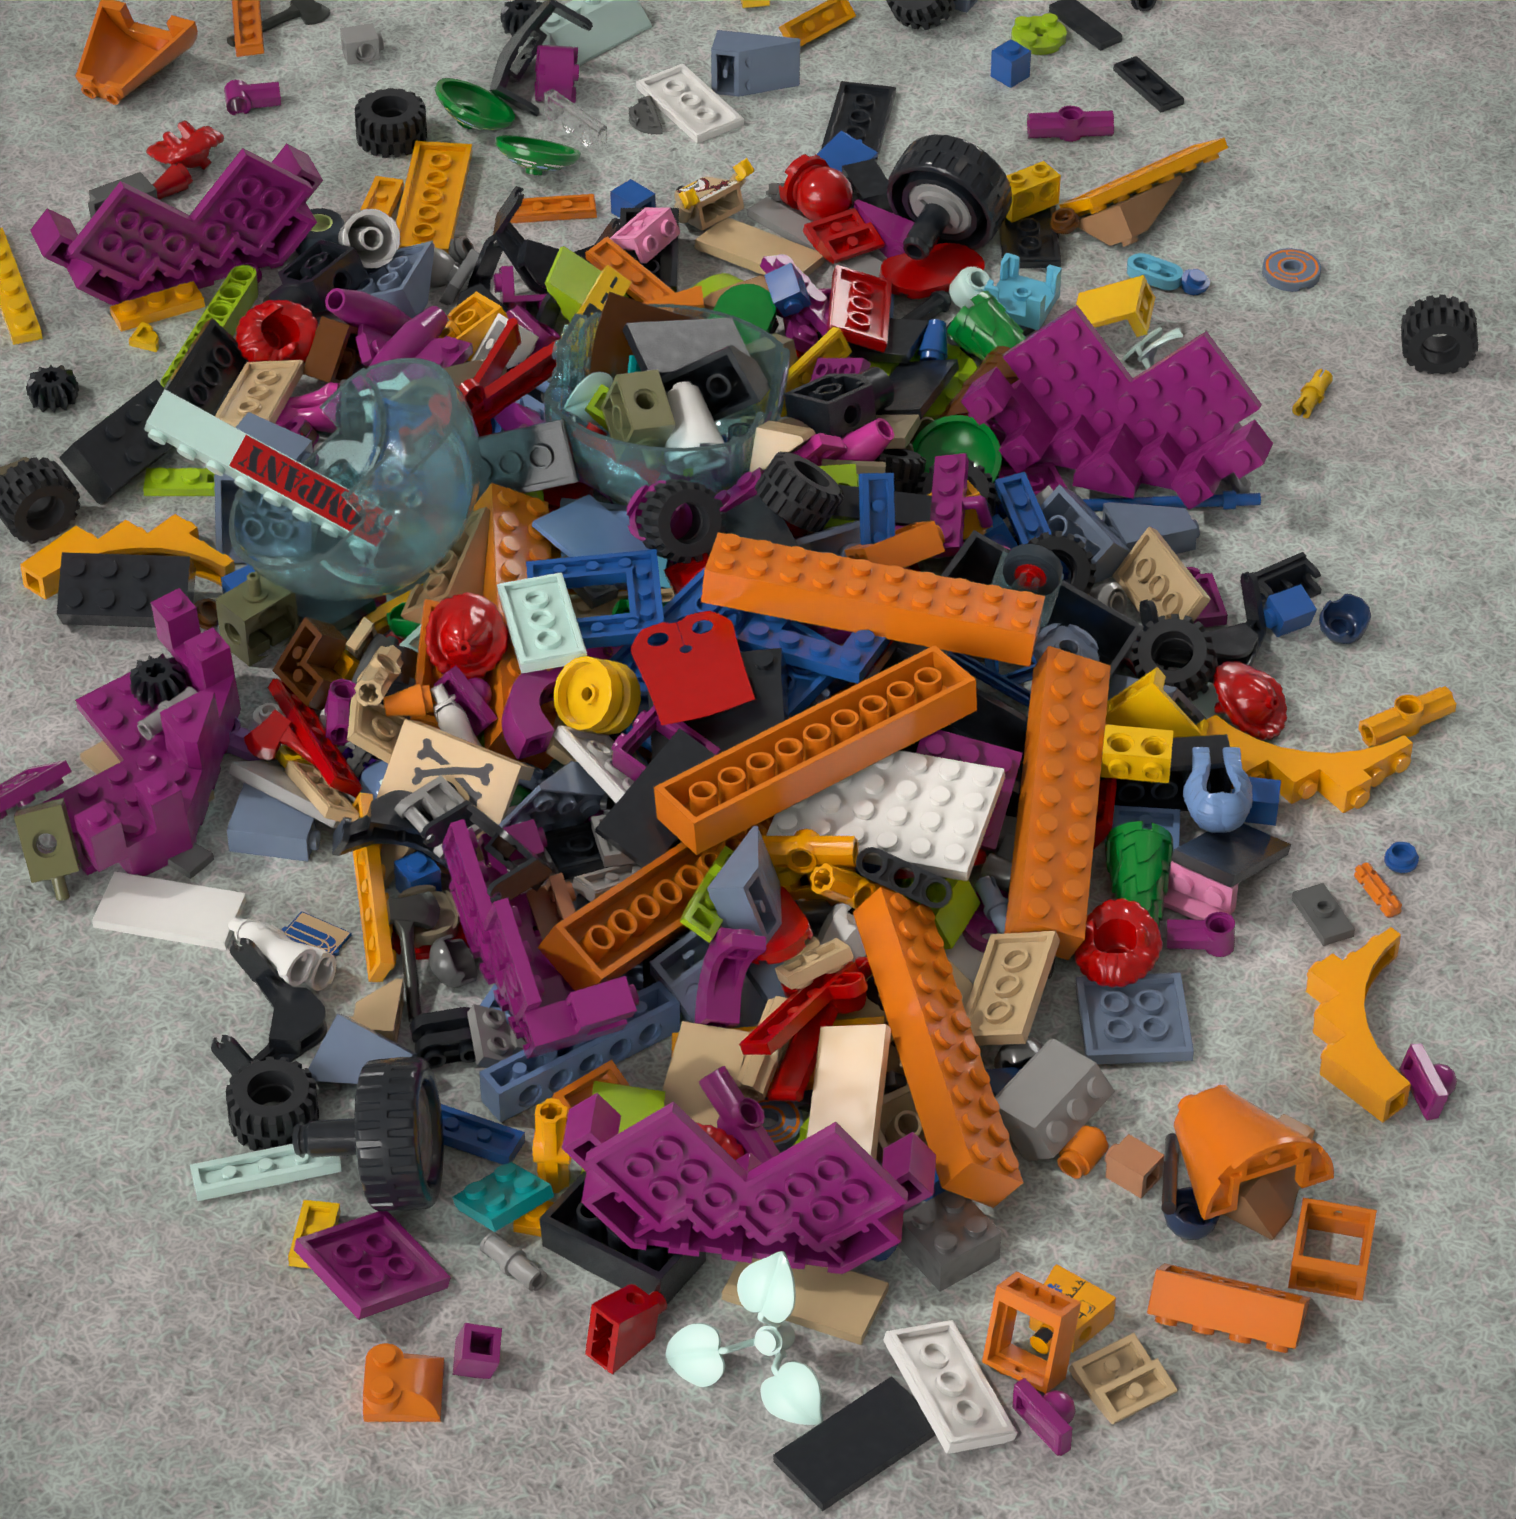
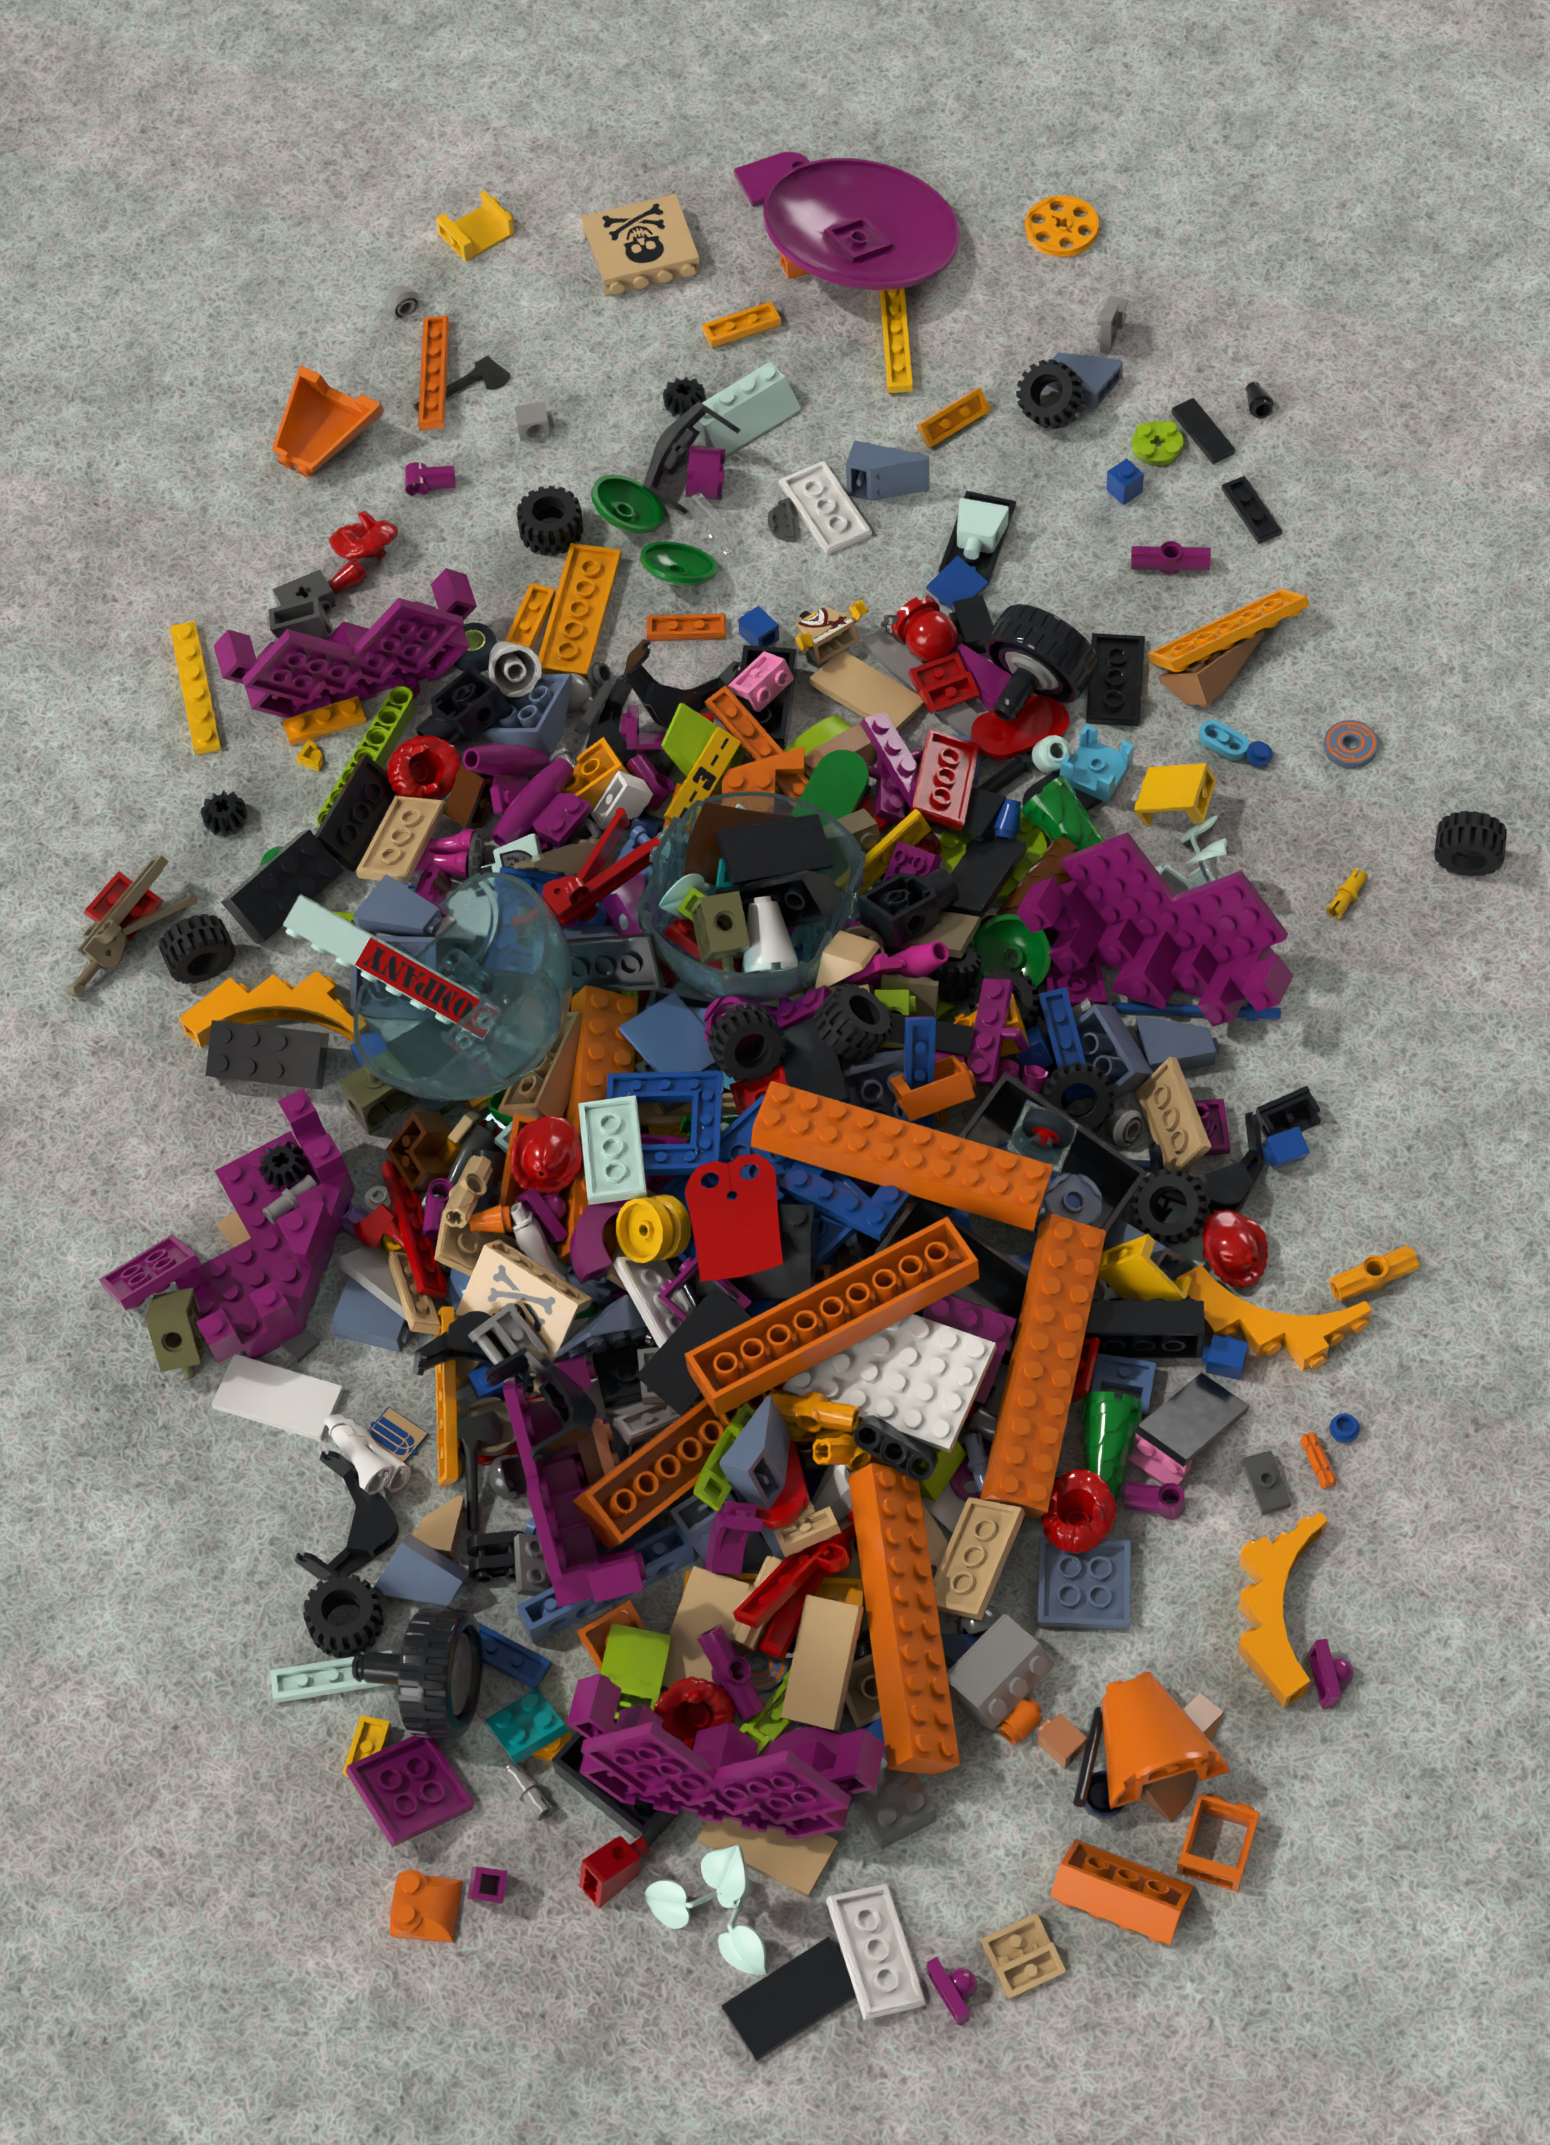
camera: 10 degrees right, 15 degrees up
(207, 613) = (333, 1075): reddish brown plate -> none
(551, 1159) = (564, 1685): light orange piece -> none
(787, 290) = (880, 760): brick -> none
(862, 103) = (980, 526): none -> light aqua torso
(1033, 190) = (1119, 643): yellow brick -> none
(1043, 1304) = (958, 1903): orange window -> none
(1064, 221) = (1147, 672): reddish brown plate -> none
(1095, 1312) = (984, 1887): light orange torso -> none
(1137, 753) = (1120, 1316): yellow brick -> none
(1221, 810) = (1186, 1374): medium blue hair -> none
(1343, 615) = (1333, 1155): dark blue hair -> none

